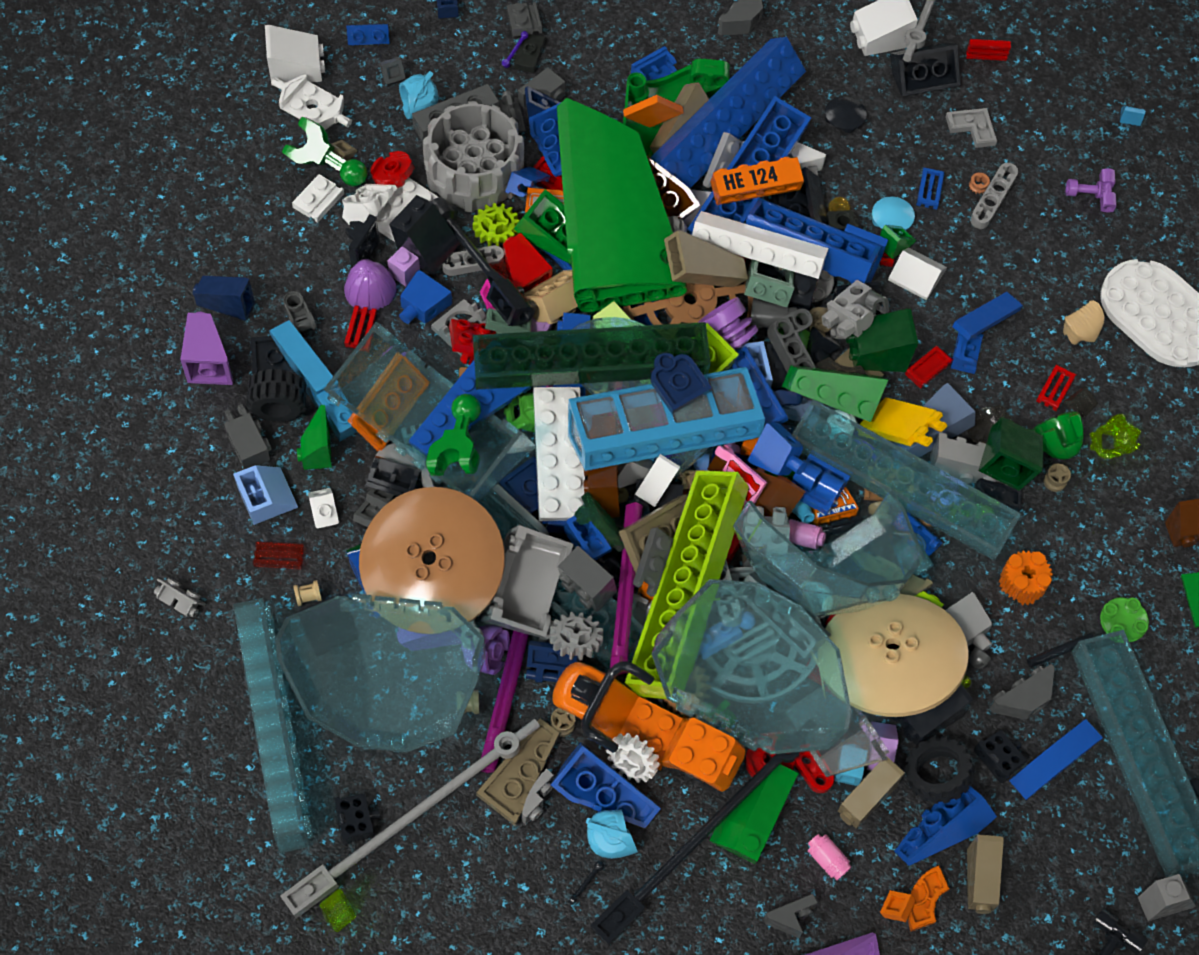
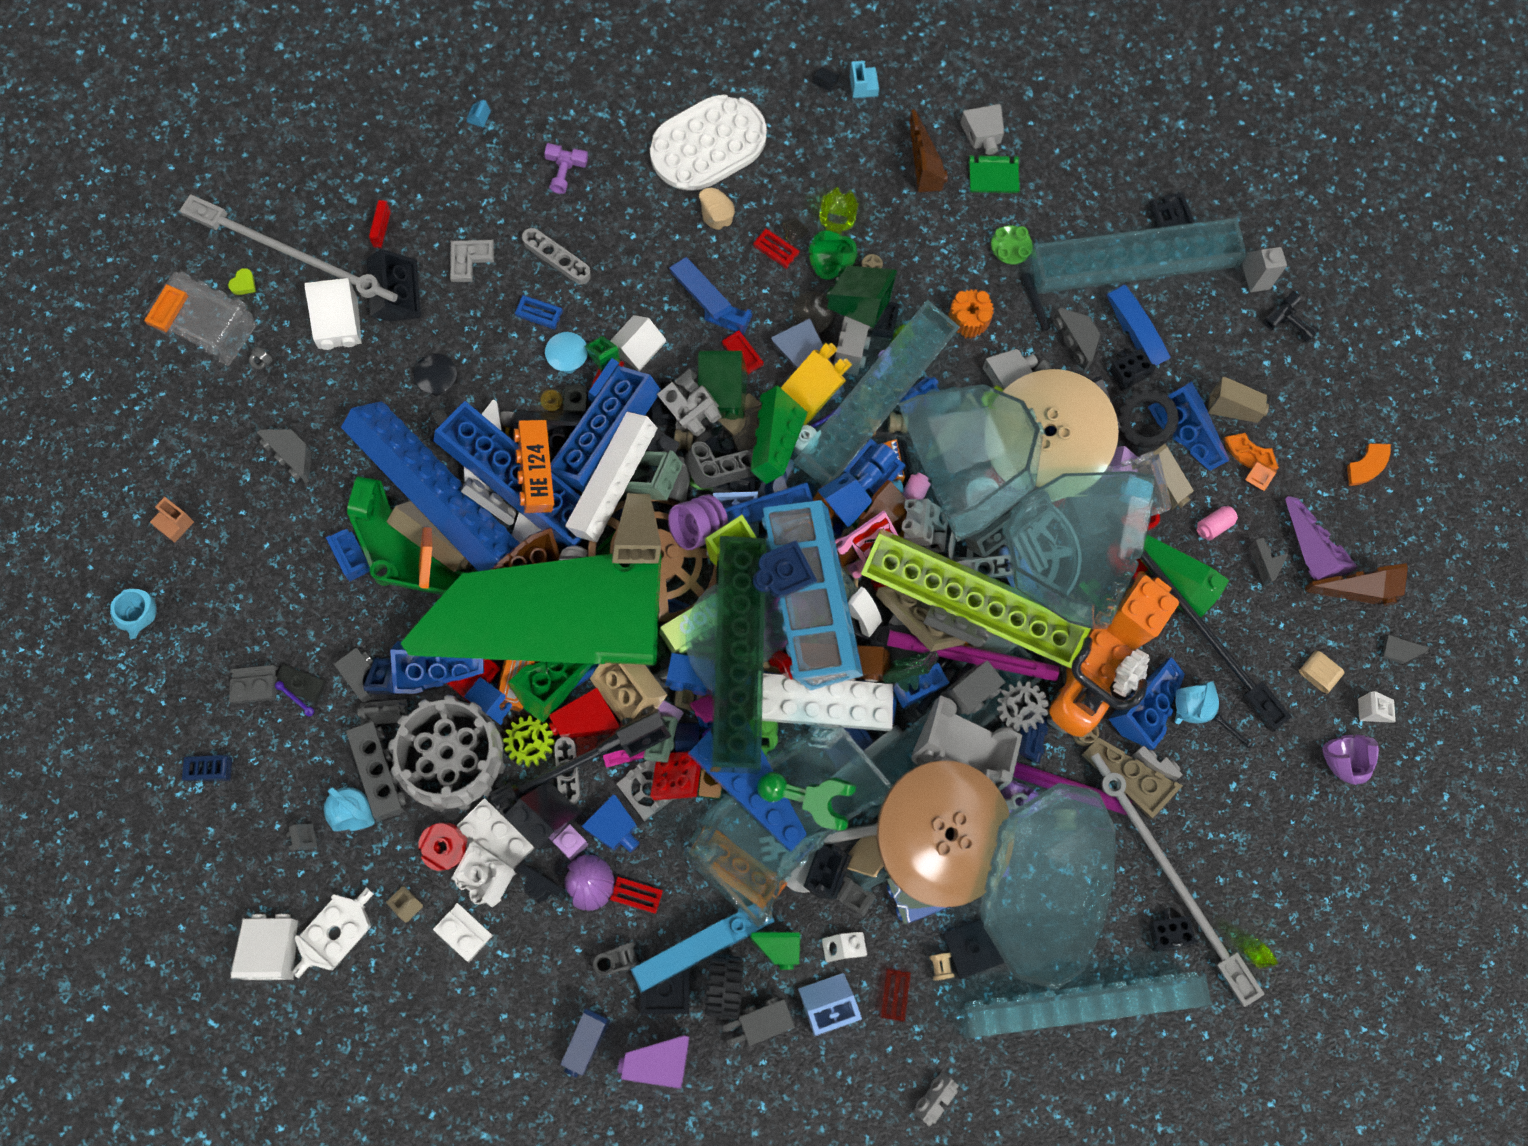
camera: 85 degrees left, 10 degrees up
(319, 150) = (407, 925): piece -> none
(367, 34) = (242, 851): blue hinge -> none
(979, 188) = (540, 259): nougat bush -> none

